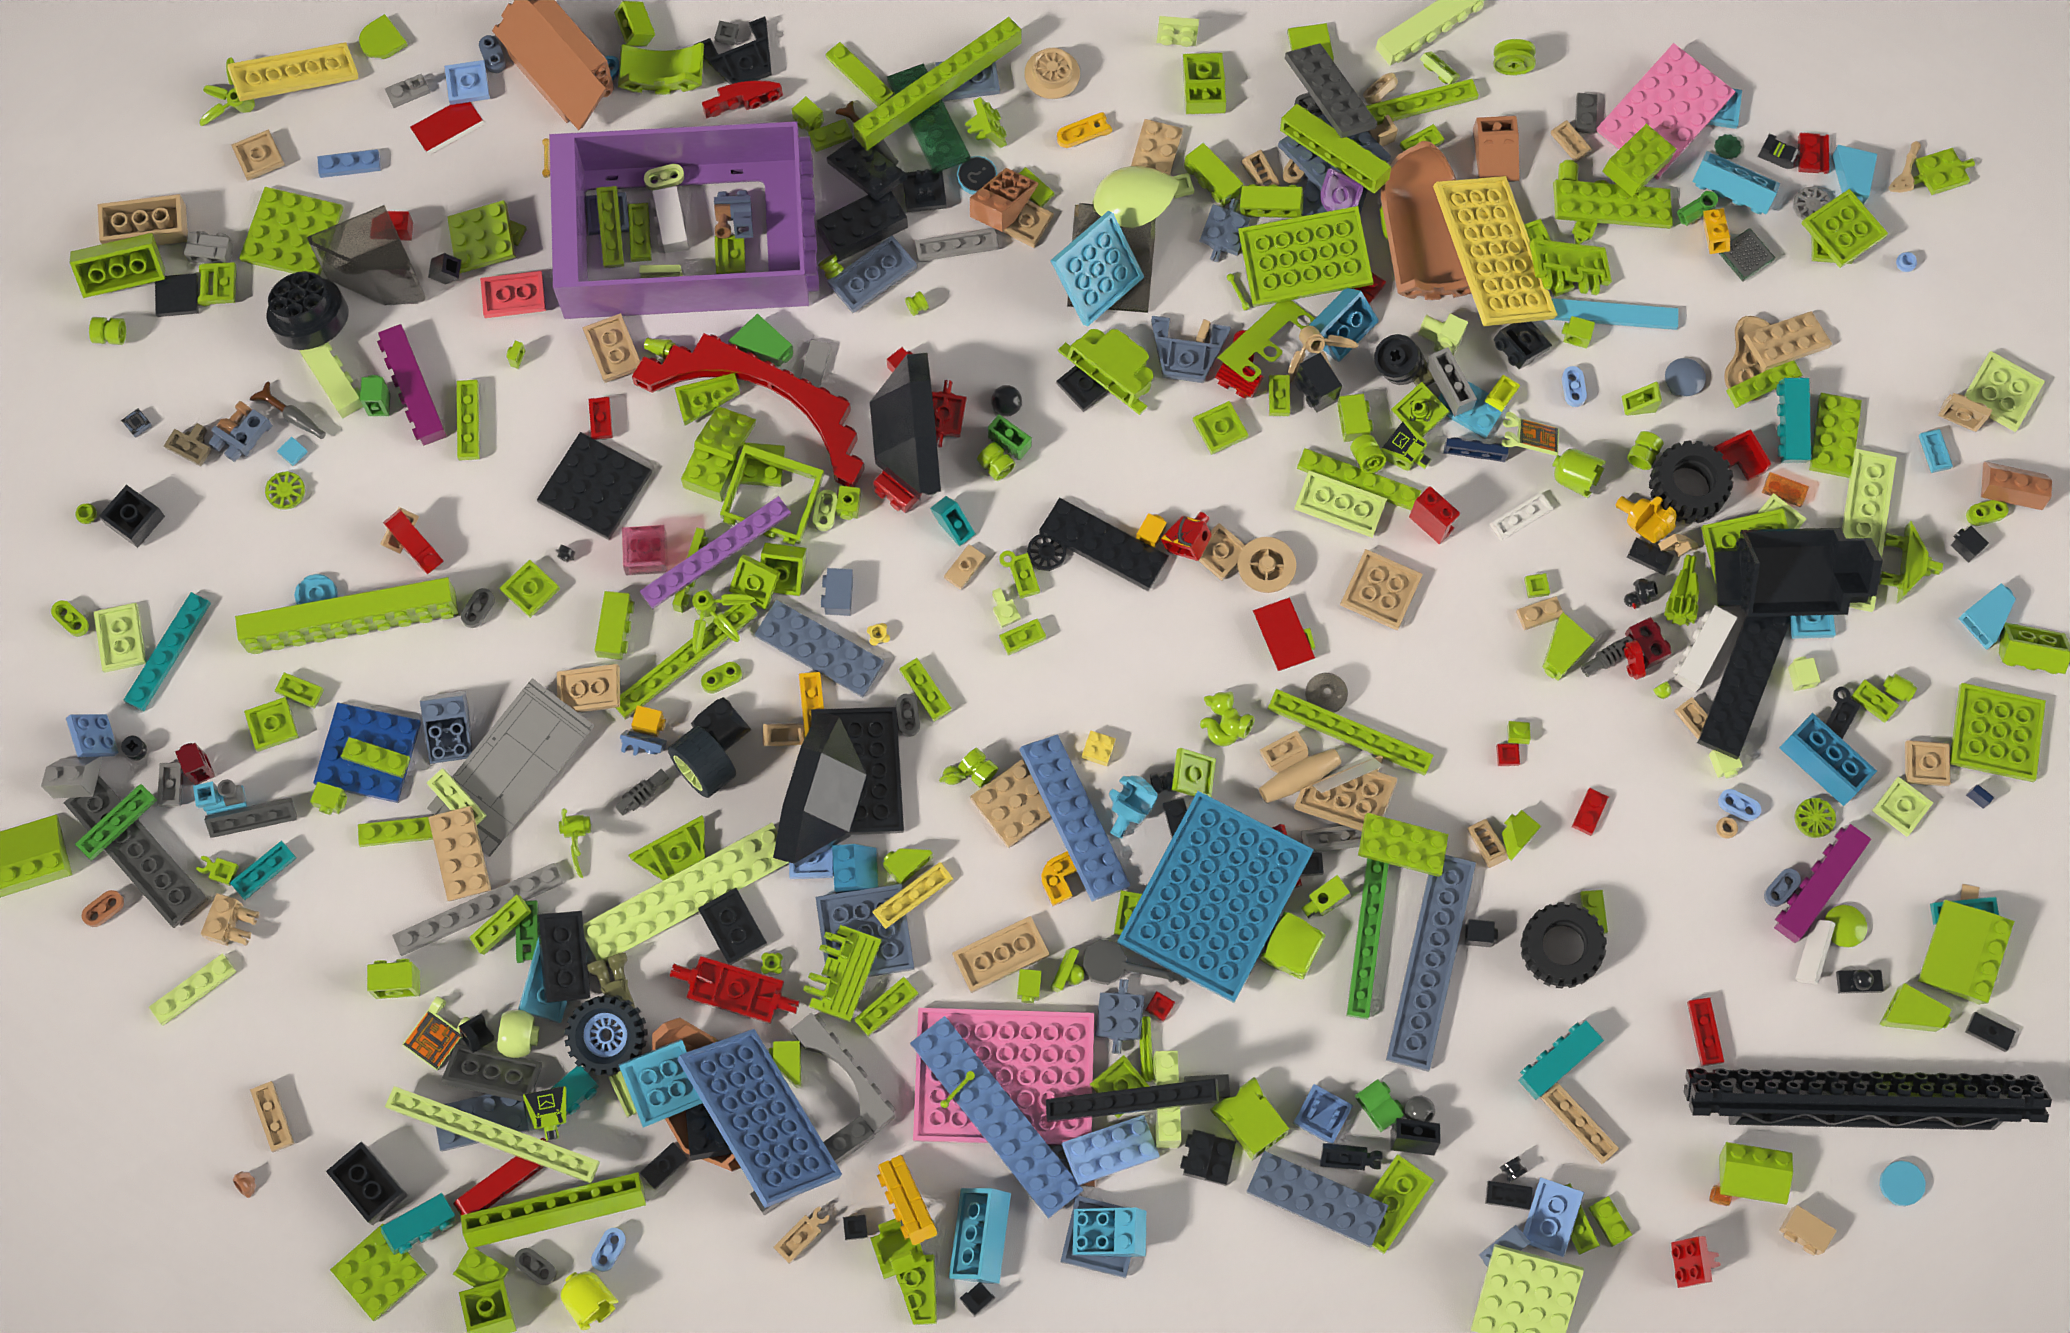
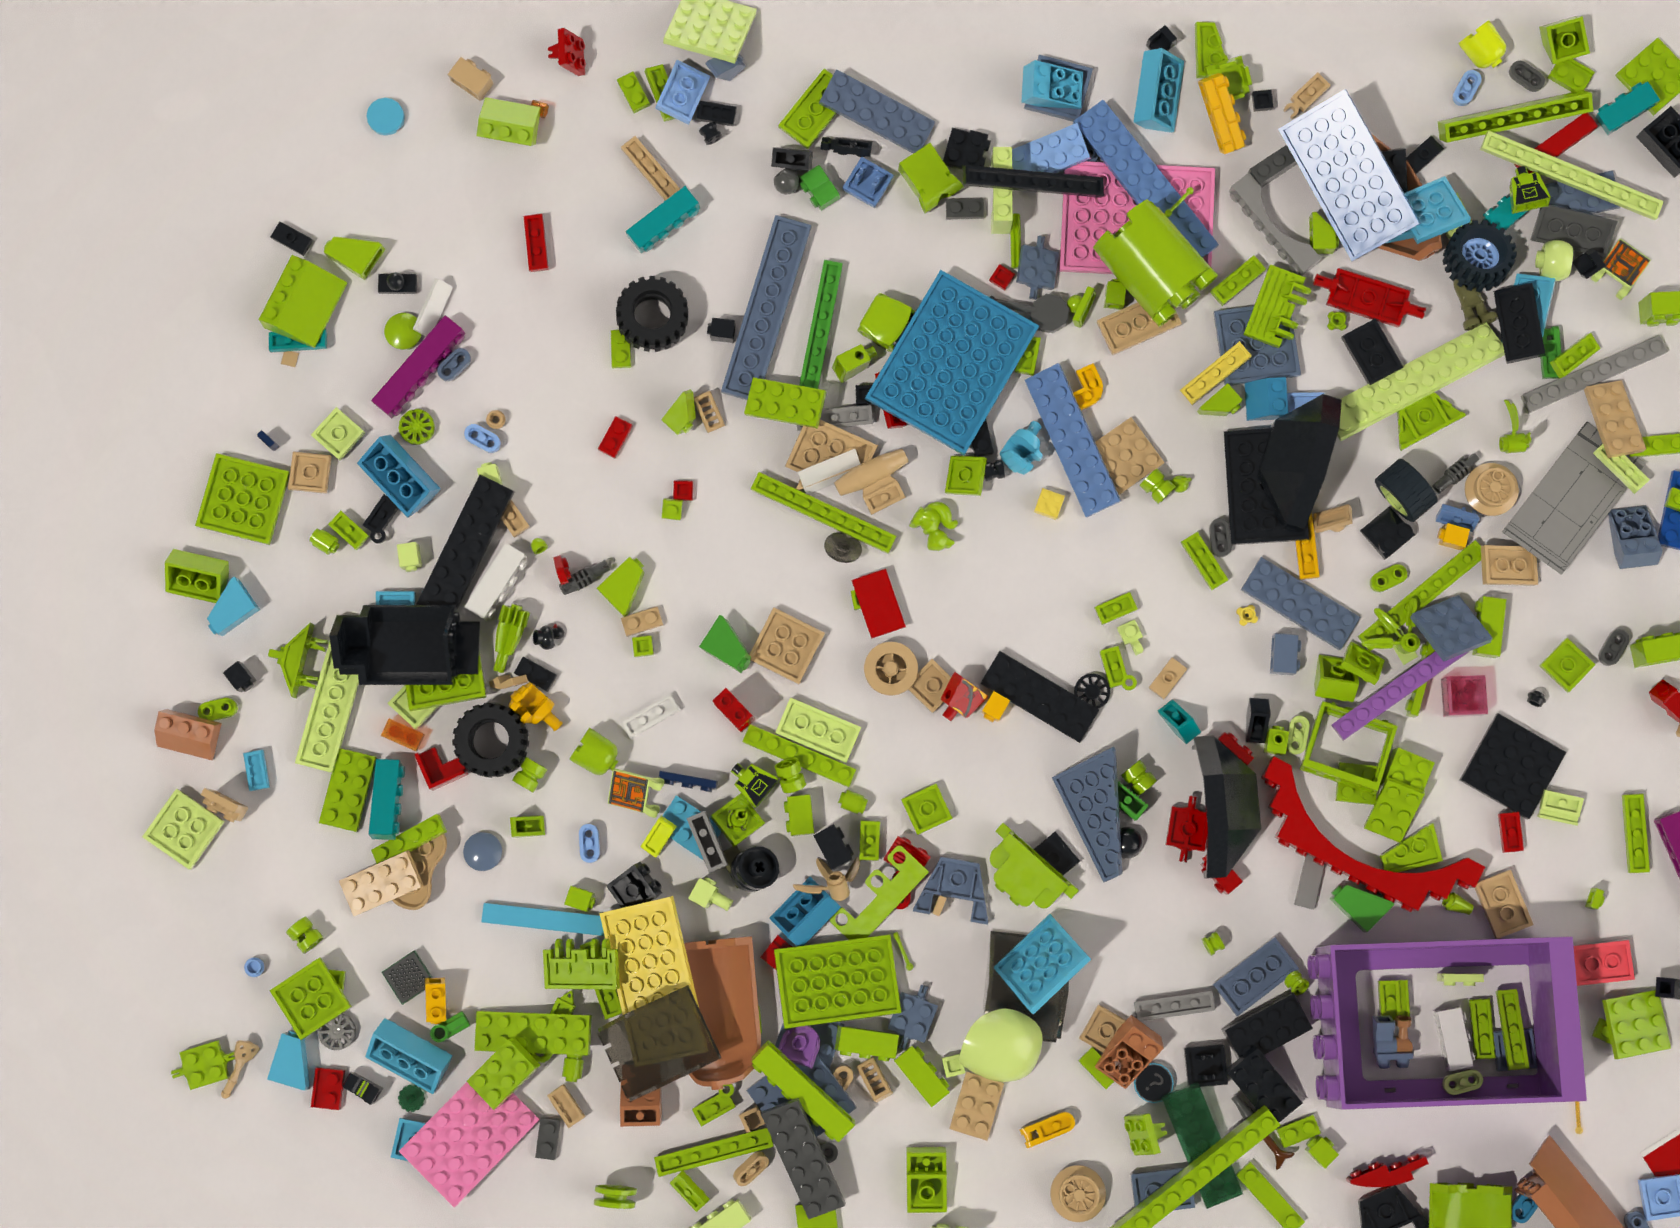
camera: 170 degrees left, 10 degrees up
(546, 444) = (1560, 807): none -> yellowish green plate
(603, 774) = (1491, 489): none -> tan wheel
(657, 615) = (1451, 628): none -> sand blue plate
(868, 524) = (1257, 720): none -> black slope
(988, 1003) = (1155, 262): none -> lime brick
(1045, 435) = (1093, 804): none -> sand blue wing
(1118, 1076) = (1038, 209): lime plate -> none
(1299, 432) = (853, 802): none -> lime brick
(1446, 584) = (726, 646): none -> bright green slope
(1484, 184) = (658, 1043): none -> clear smoke windscreen
(1654, 640) = (550, 586): dark red brick -> none
(1859, 290) = (304, 935): none -> lime wheel
(1890, 1098) = (407, 181): black piece -> none

